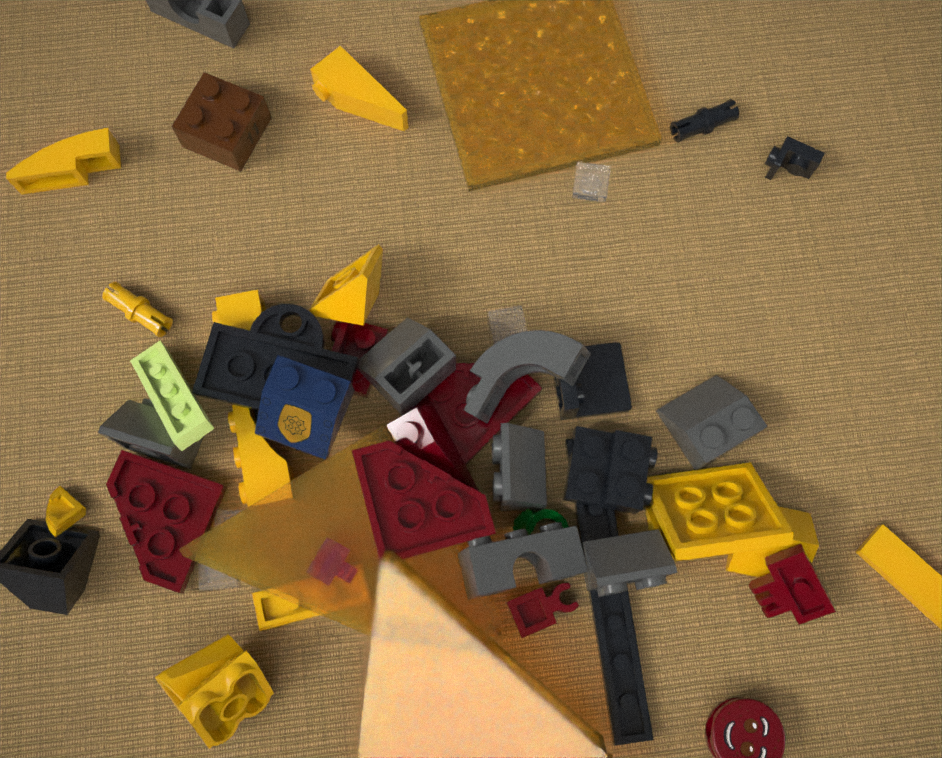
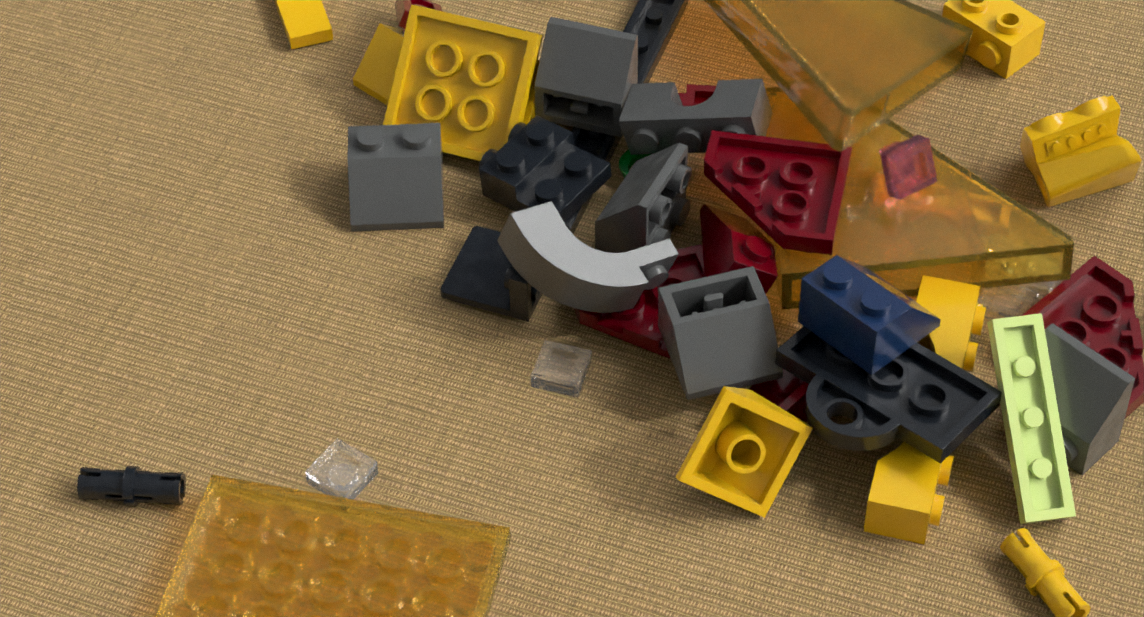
camera: 150 degrees left, 25 degrees down
(795, 157) = (69, 391): black bracket -> none

